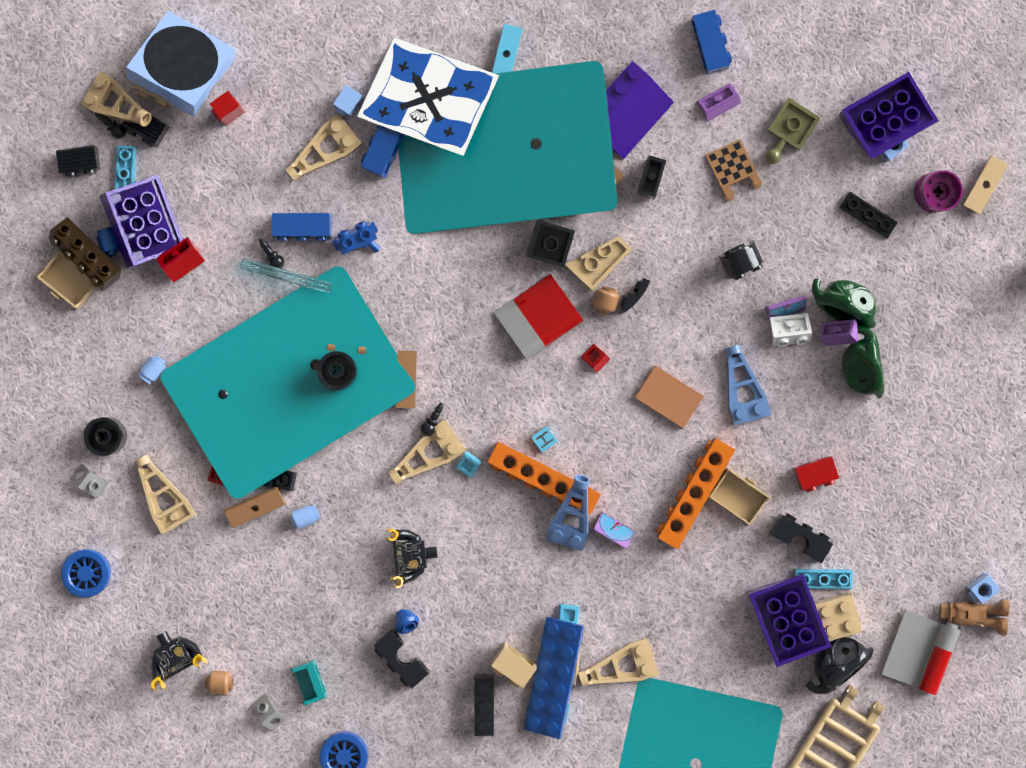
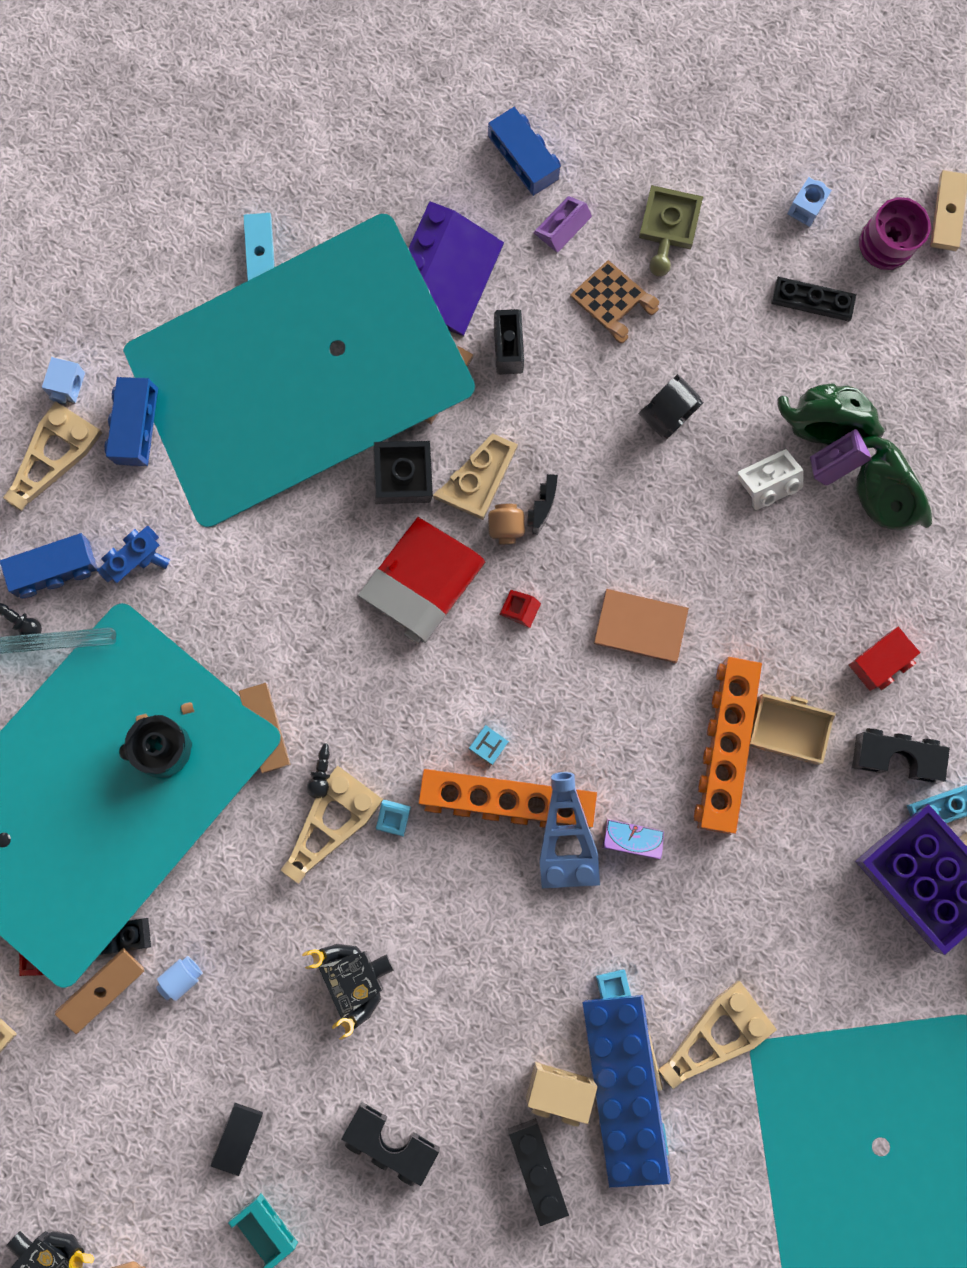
camera: 20 degrees left, 10 degrees down
(310, 623) = (236, 1139): none -> black slope
(405, 621) = (378, 1084): blue cone -> none
(428, 96) = (170, 336): sticker -> none
(748, 410) = (758, 606): medium blue plate -> none
(787, 307) = (755, 450): slope -> none
(888, 116) = (789, 161): dark purple slope -> none

